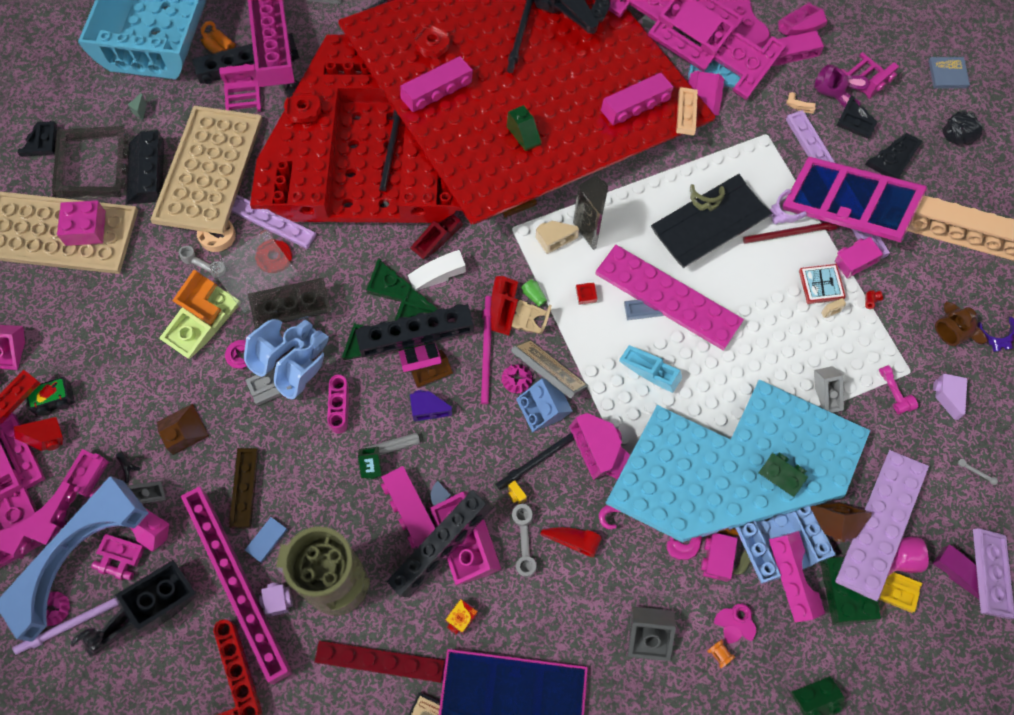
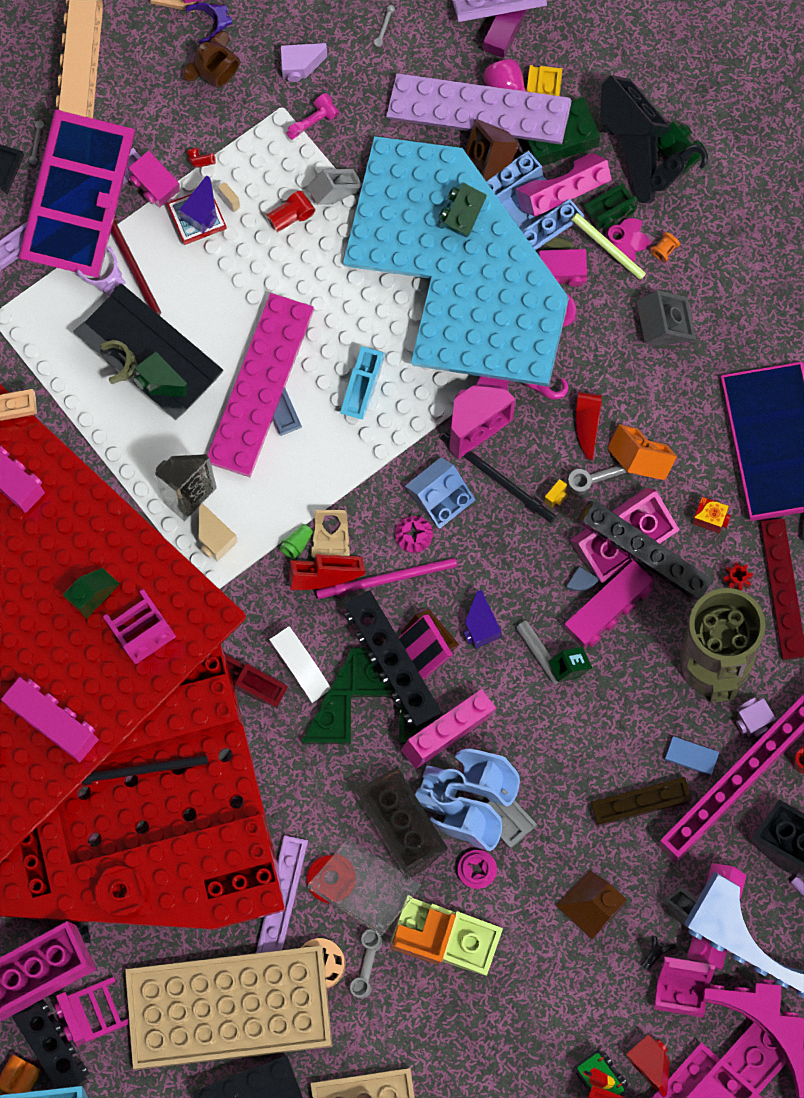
camera: 100 degrees left, 5 degrees up
(119, 550) = (756, 914): dark pink plate -> none
(334, 396) = (517, 718): dark pink beam -> none
(347, 355) = (448, 729): none -> dark pink brick
(396, 618) = (733, 581): none -> red gear
(472, 153) = (150, 639): none -> dark pink plate
(530, 571) = (639, 454): none -> orange panel
(549, 368) = (395, 494): tile -> none
(586, 293) = (283, 478): red plate -> none
(687, 217) = (159, 377): none -> dark green slope
(732, 597) = (608, 246): none -> yellowish green bar
(769, 616) = (611, 206): none -> dark green bracket
(813, 354) = (295, 209): none -> red piece
(828, 283) = (200, 207): none -> dark purple slope
(849, 660) = (639, 125): none -> black slope

